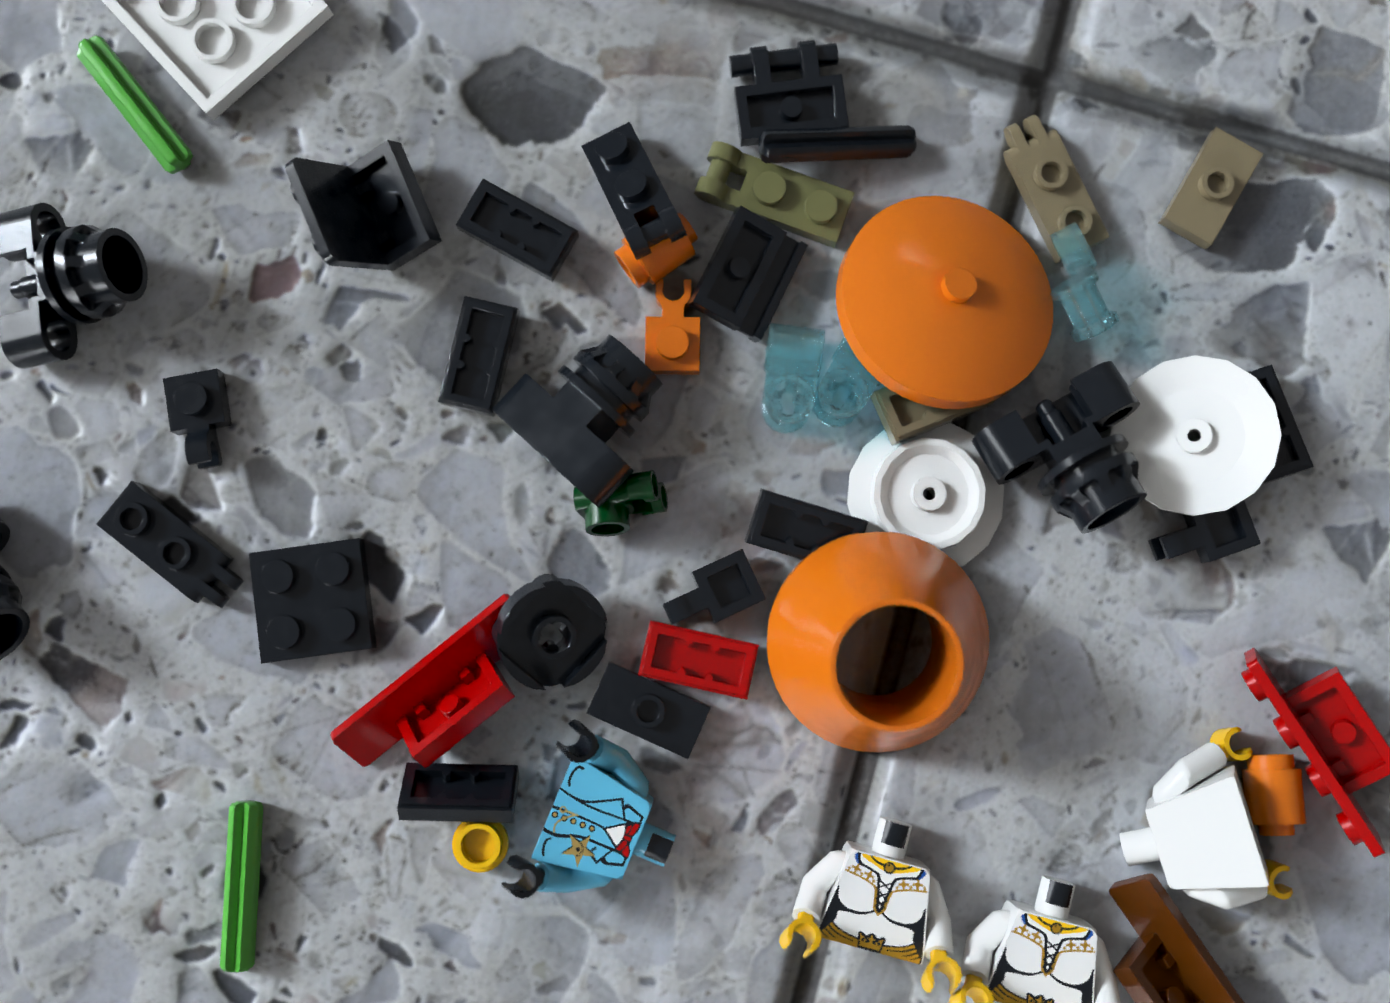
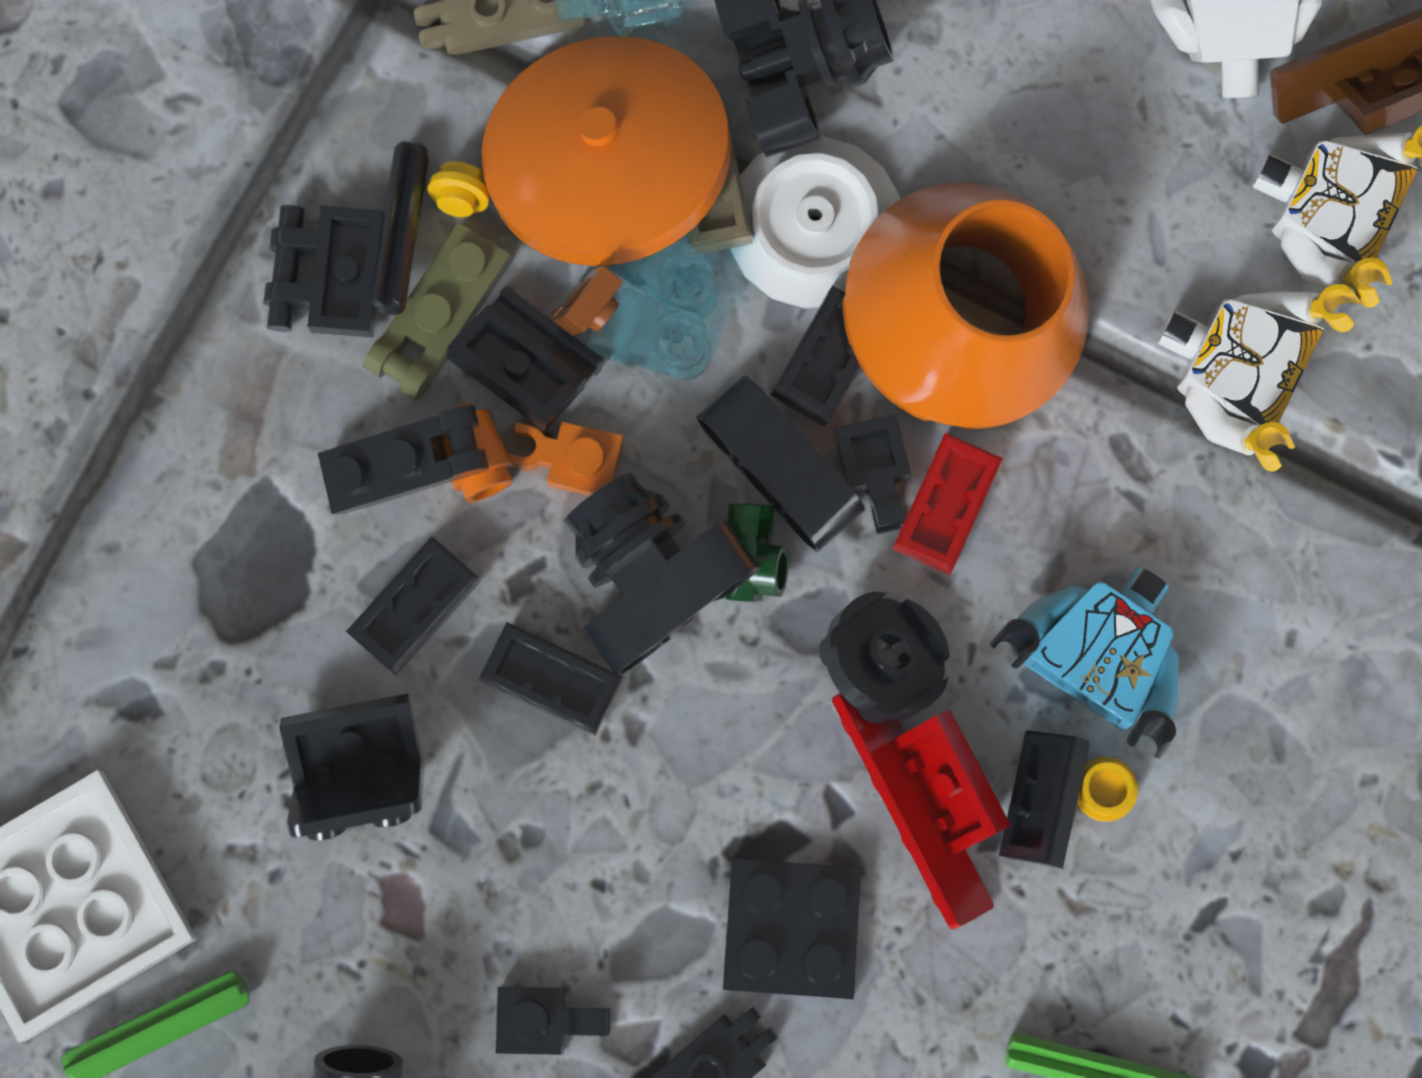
camera: 75 degrees left, 5 degrees down
(648, 710) = (991, 572): black plate -> none
(702, 509) = (780, 463): none -> black beam
(800, 314) = (589, 302): none -> dark orange plate
(882, 185) = (459, 189): none -> yellow plate

